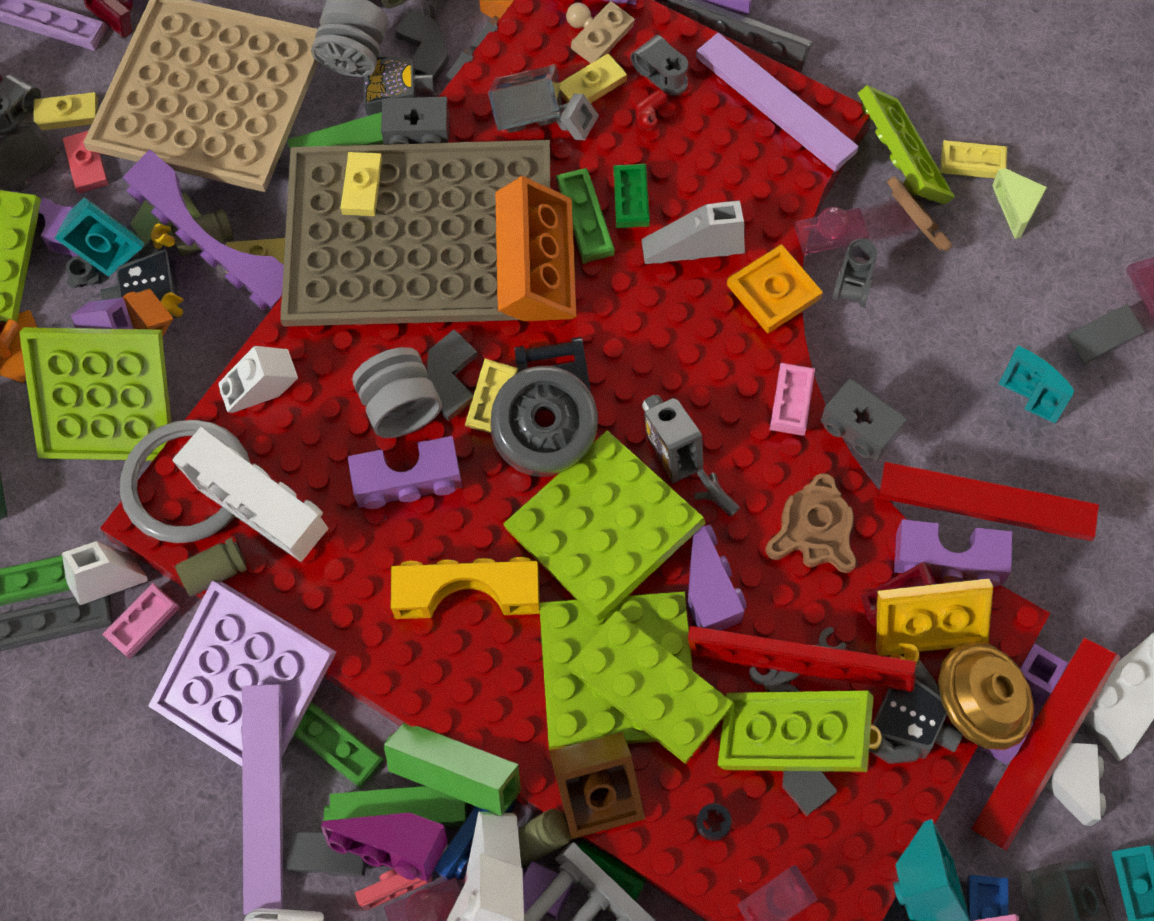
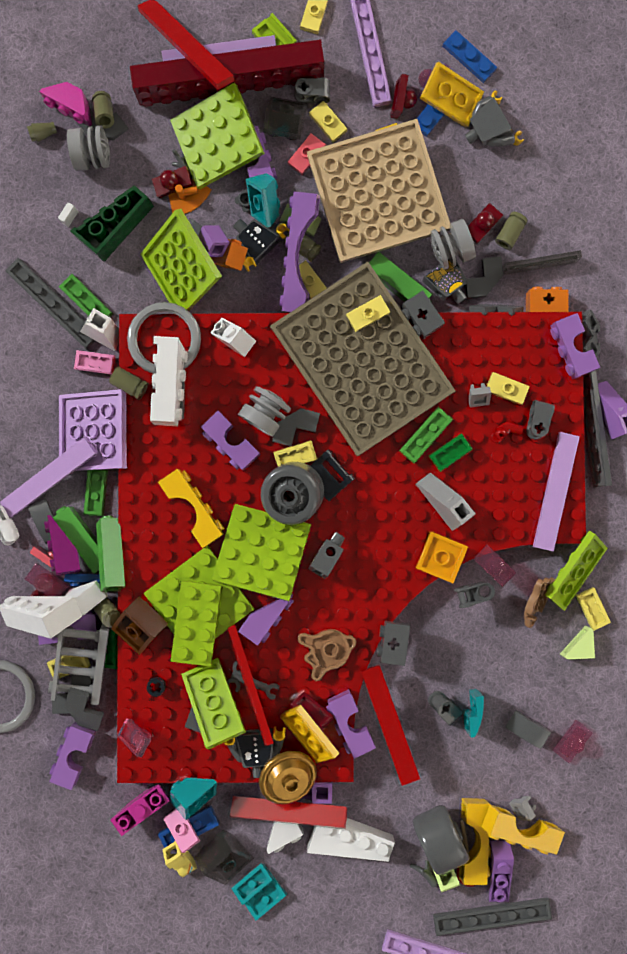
camera: 55 degrees right, 20 degrees up
(526, 99) = (473, 362): clear smoke slope -> none
(534, 252) = (382, 428): orange slope -> none
(598, 33) = (541, 373): tan plate -> none
(716, 493) = (313, 593): dark grey bar -> none
(792, 399) = (385, 601): bright pink plate -> none
(1006, 424) = (445, 707): none -> dark grey piece

